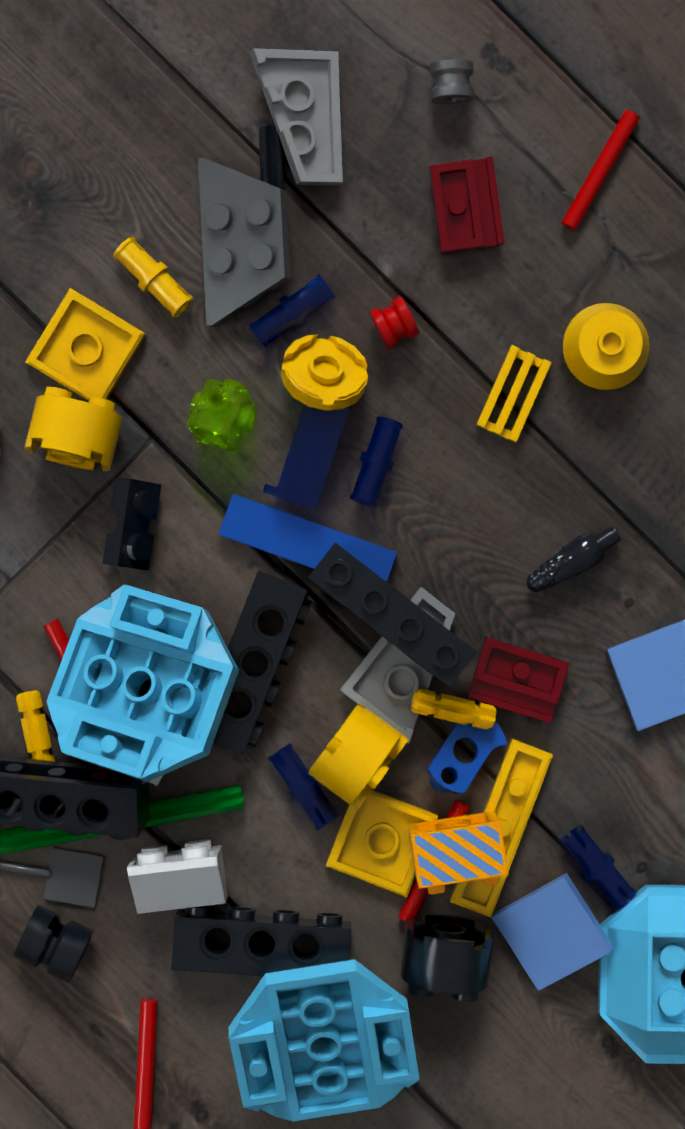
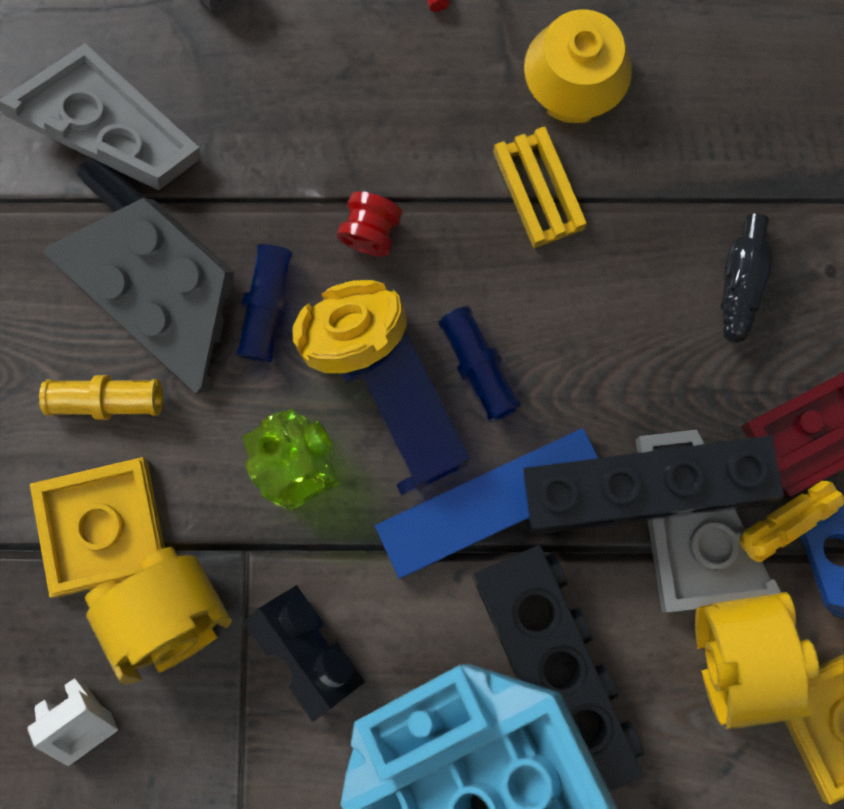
camera: 45 degrees left, 10 degrees down
(303, 786) = (728, 746): clear blue pin -> none
(466, 205) = (332, 66): dark red plate -> none

